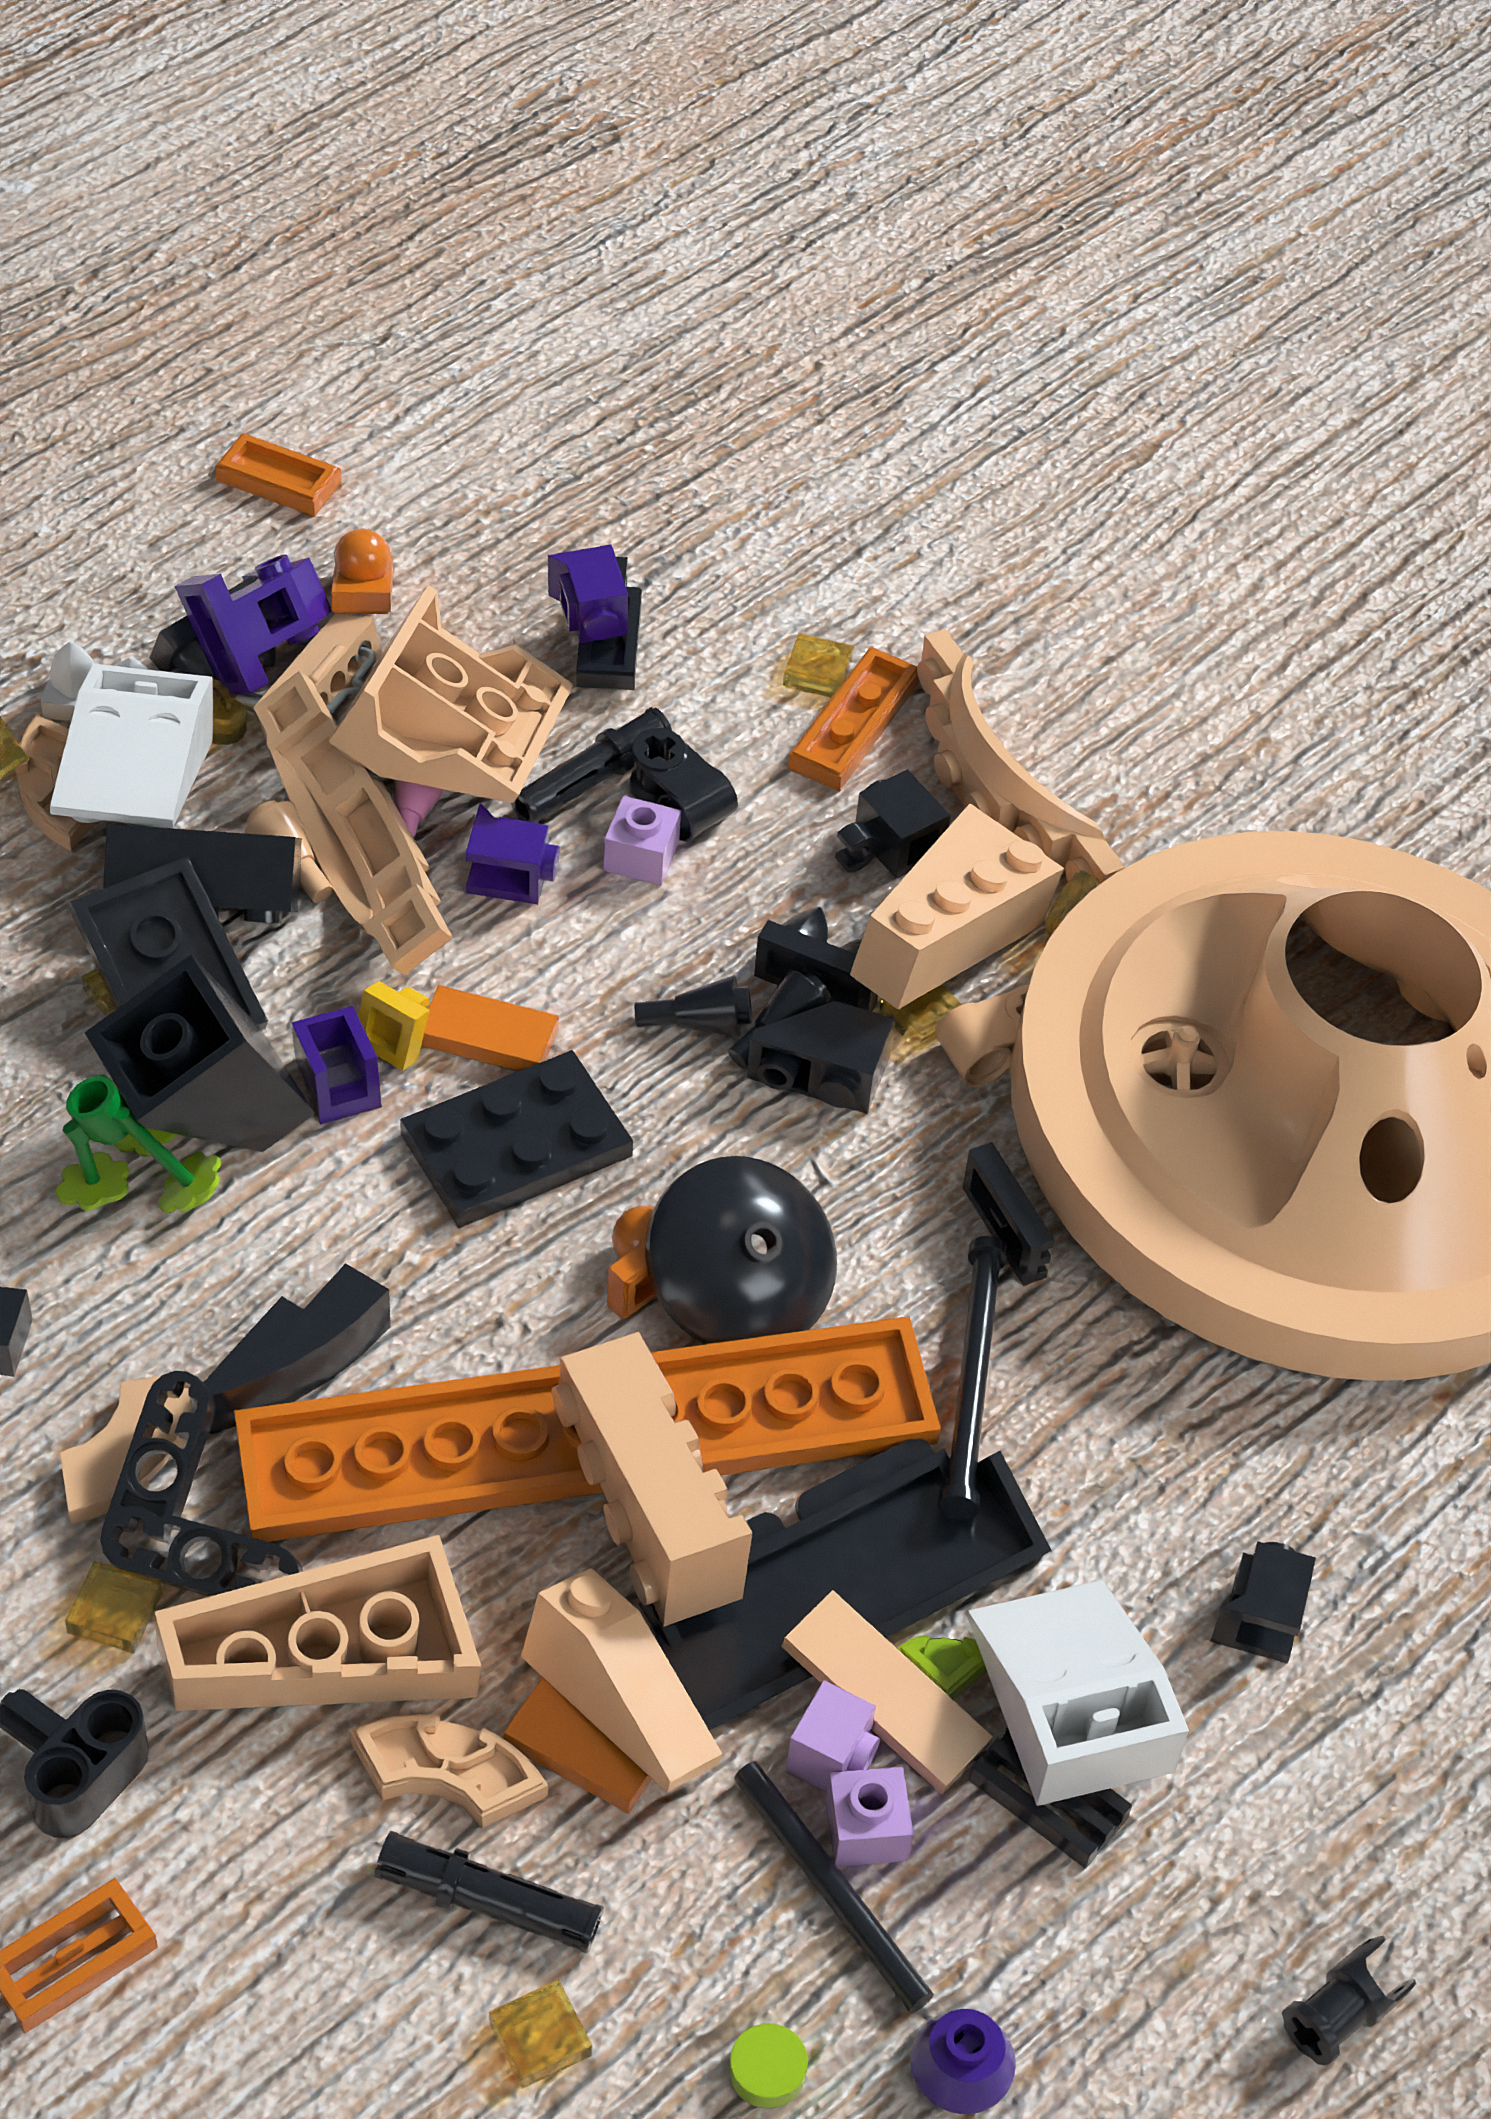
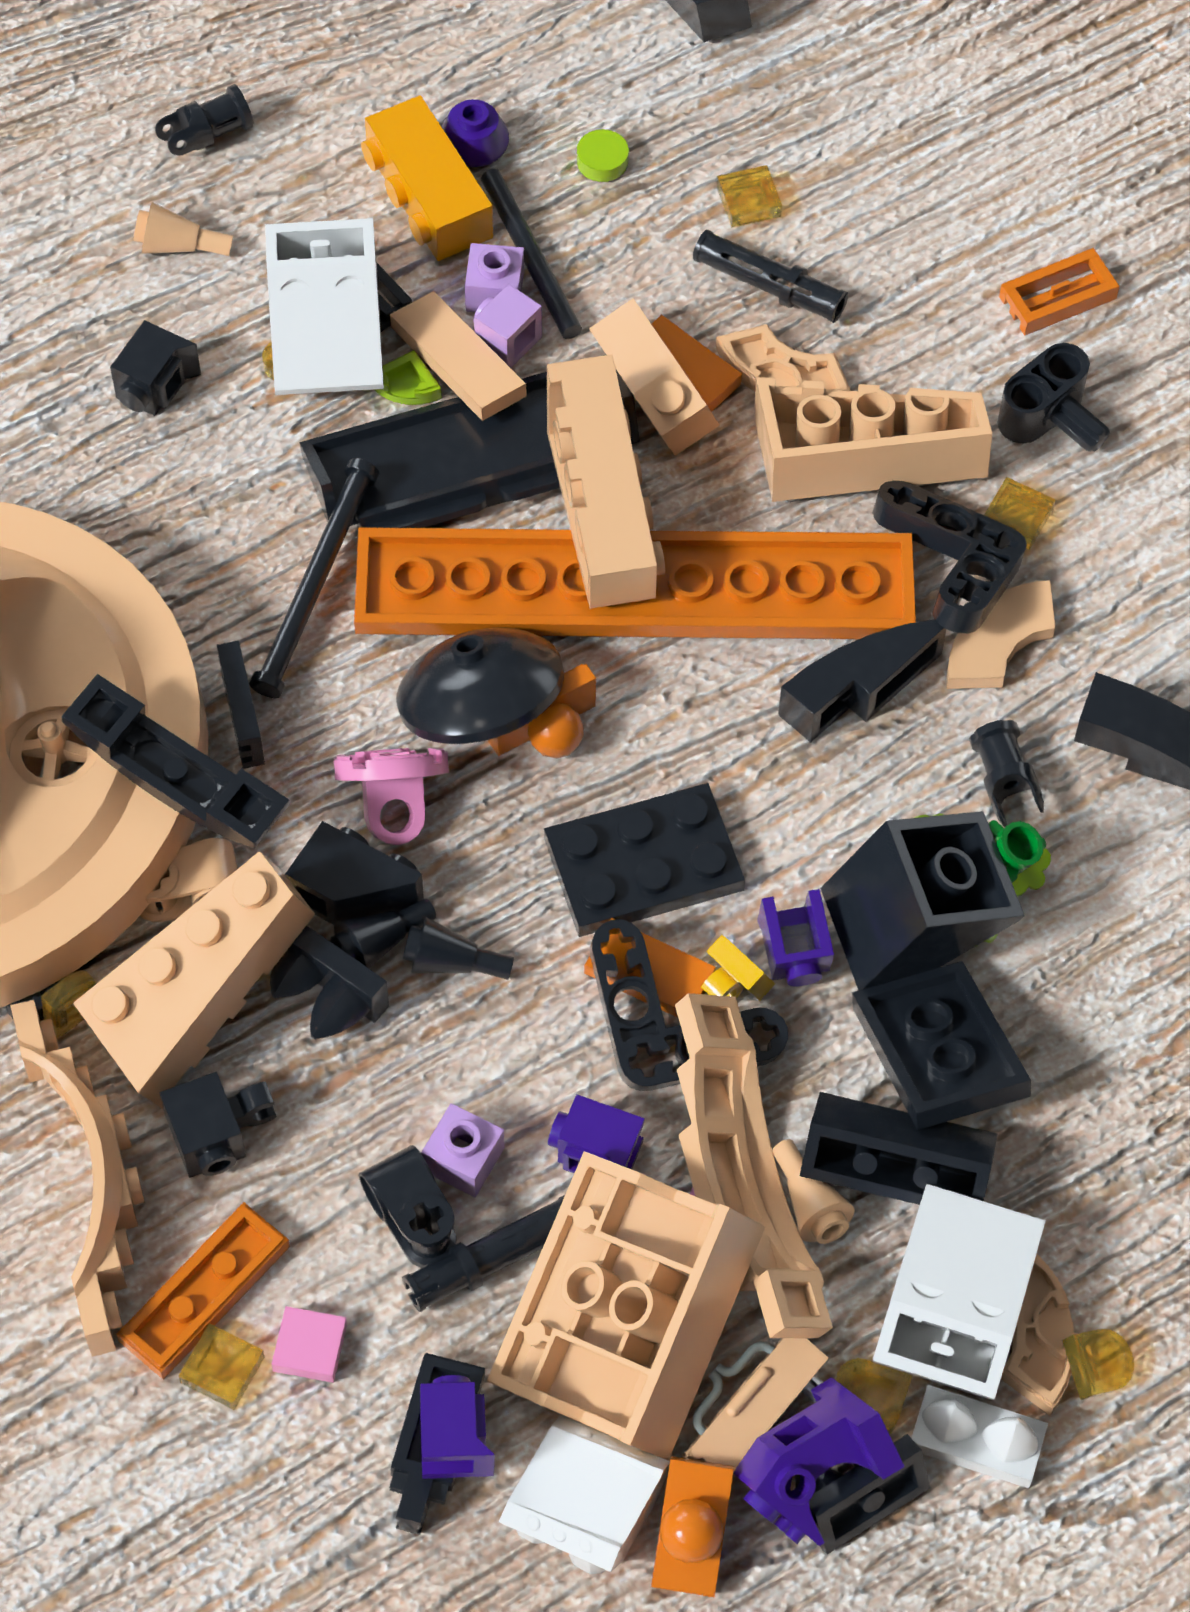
camera: 165 degrees left, 10 degrees up
(112, 1273) = (1004, 765): none -> black piece
(474, 601) = (585, 1495): none -> white slope
(477, 948) = (651, 1029): none -> black beam
(744, 688) = (309, 1344): none -> bright pink tile
(821, 1139) = (391, 776): none -> bright pink tile
(1007, 1955) = (427, 178): none -> light orange brick
(1035, 1040) = (170, 768): none -> black slope
(1327, 1812) = (168, 233): none -> light nougat cone

